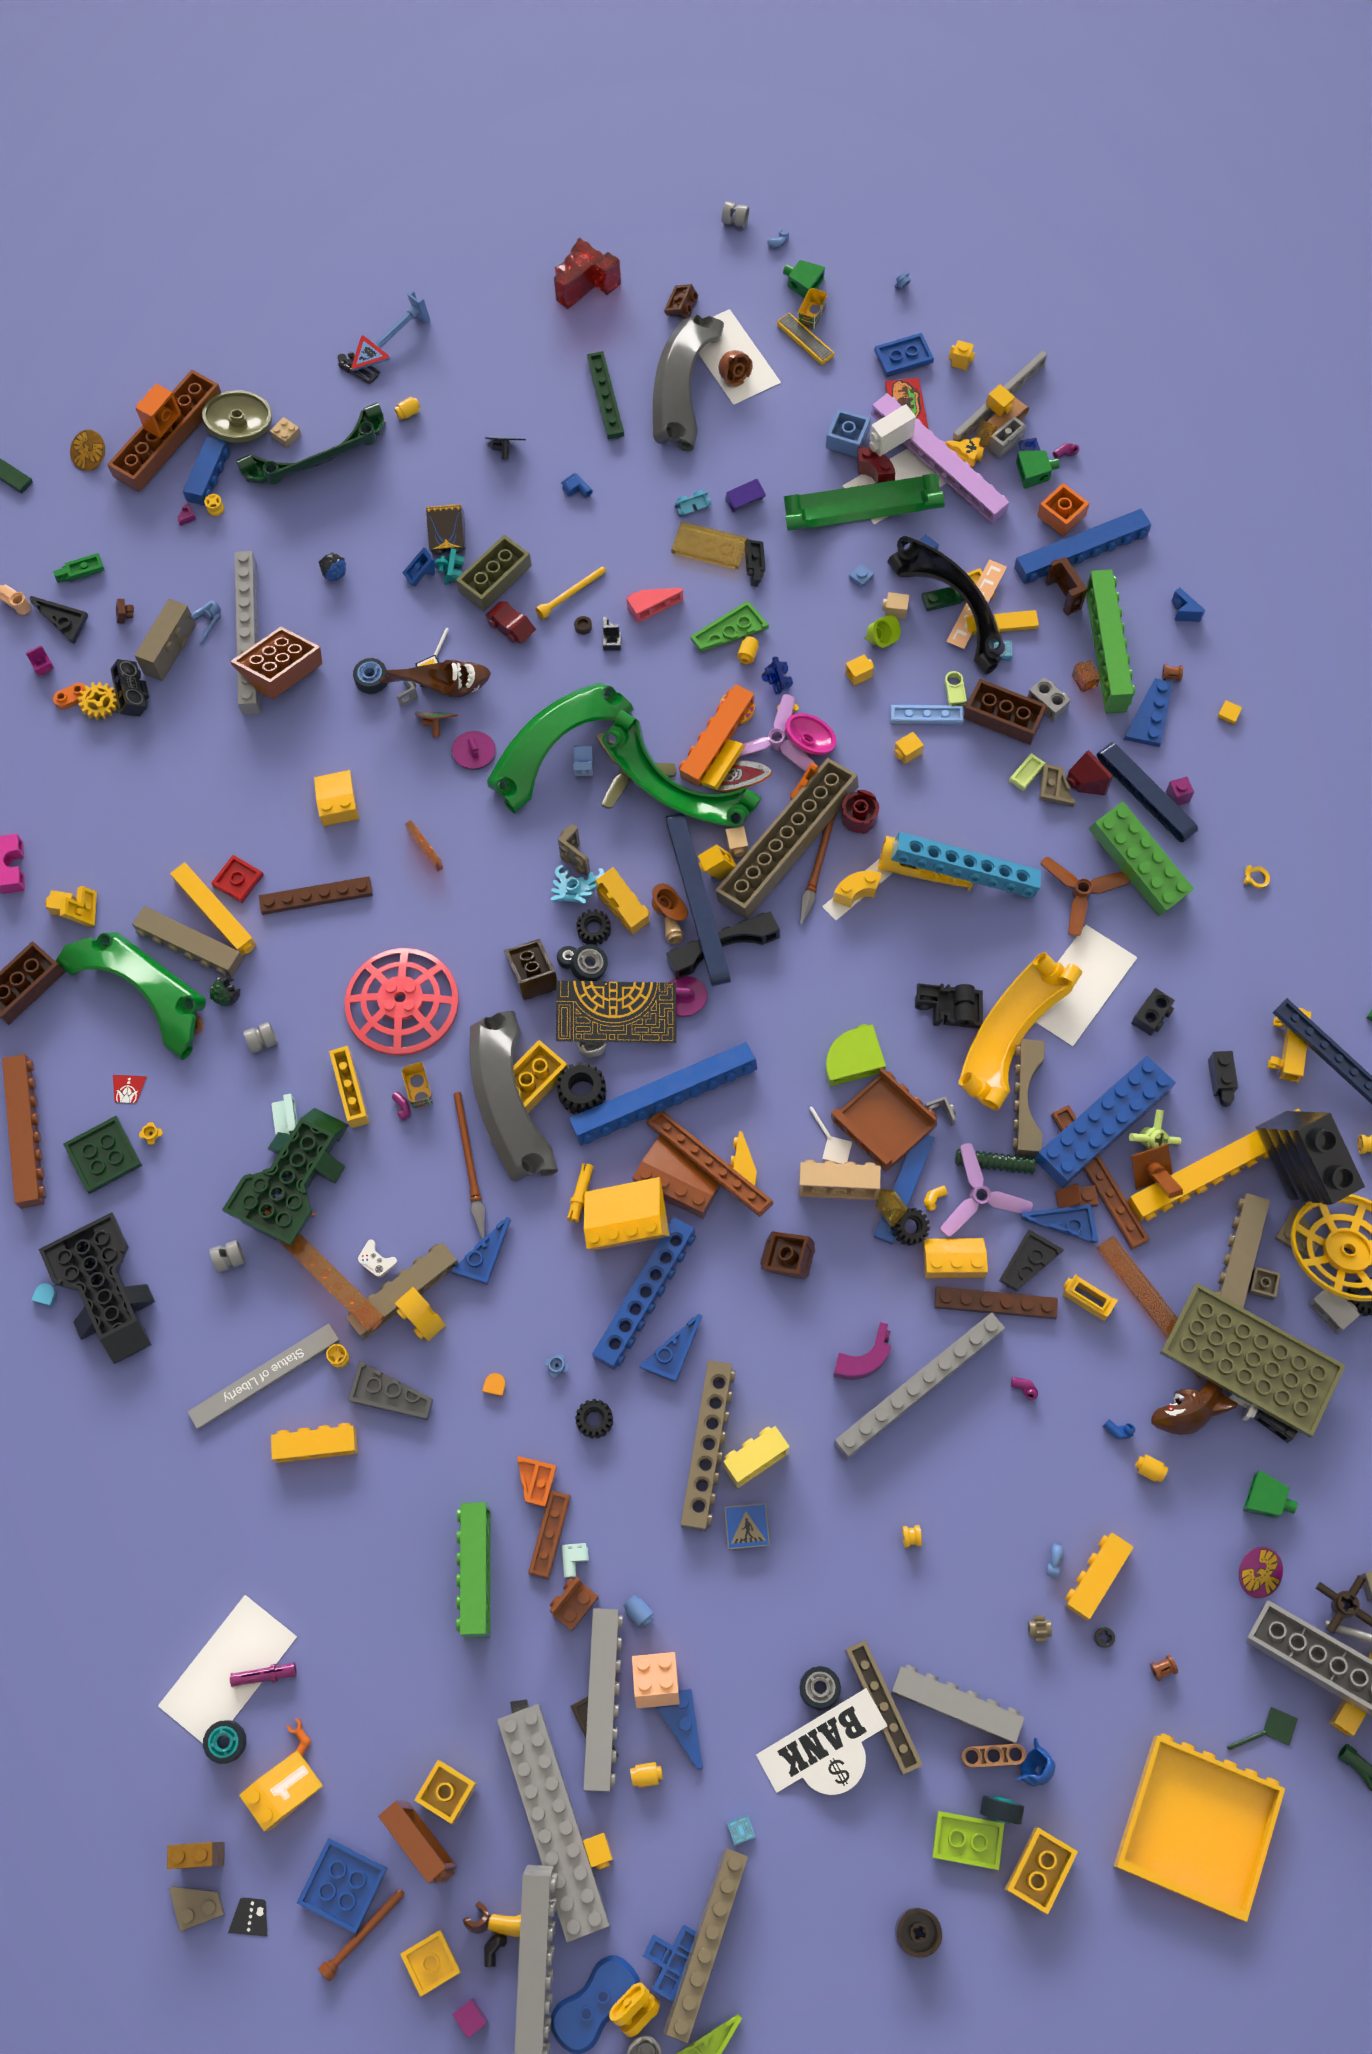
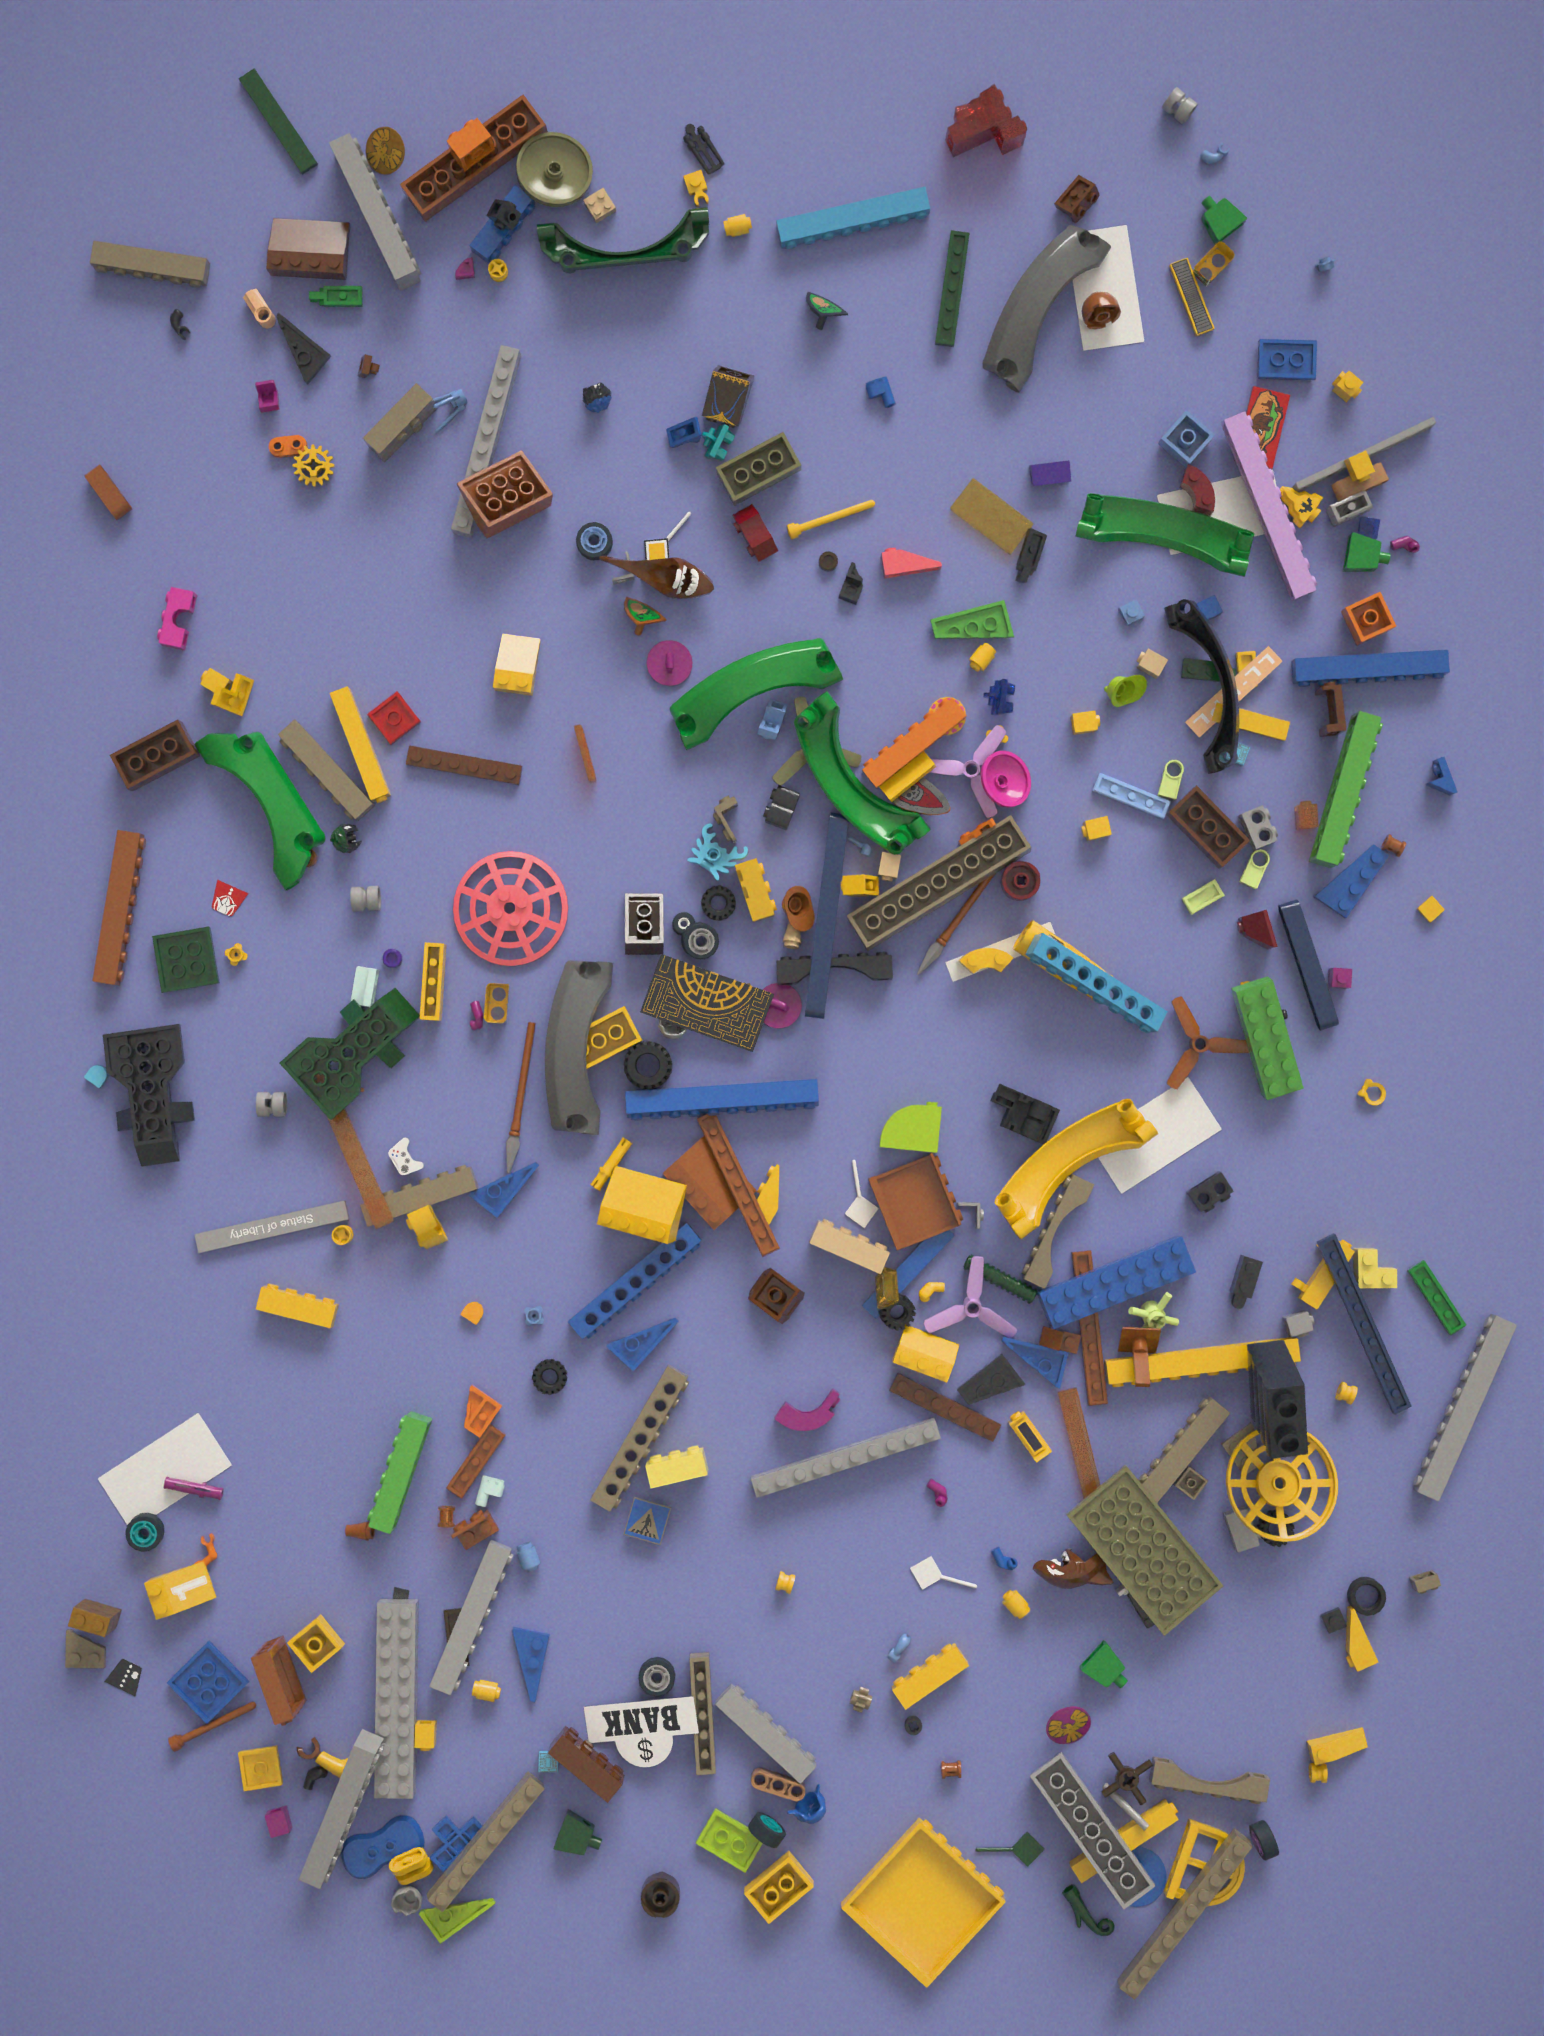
camera: 20 degrees right, 20 degrees up
(43, 544) = (308, 249): none -> slope
(93, 493) = (375, 210): none -> light grey brick
(129, 690) = (348, 463): black piece -> none
(204, 454) = (504, 214): none -> black brick
(303, 1084) = (392, 958): none -> dark purple tile
(362, 393) = (696, 185): none -> yellow plate
(370, 353) = (719, 138): medium blue piece -> none
(386, 1393) = (373, 1283): dark grey wing -> none
(454, 1652) = (360, 1531): none -> dark orange cone
(501, 372) = (853, 217): none -> dark azure brick
(538, 1602) = (446, 1516): none -> clear orange bush
(620, 828) = (782, 807): none -> black brick
(655, 1680) = (521, 1620): light nougat brick -> none
(699, 500) = (986, 458): medium azure hinge -> none
(709, 835) = (866, 849): none -> medium blue hand
(783, 1811) = (586, 1763): none -> reddish brown brick
(802, 1901) = (576, 1835): none -> dark green torso
(892, 430) = (1227, 467): white brick -> none
(984, 432) = (1330, 494): clear yellow bracket -> none
(1050, 1473) = (928, 1573): none -> white piece
(1055, 786) = (1222, 924): dark tan wing -> none
(1062, 737) = (1252, 873): none -> yellowish green piece
(1292, 1097) = (1299, 1323): none -> light grey brick
(1337, 1028) = (1367, 1270): none -> light yellow brick

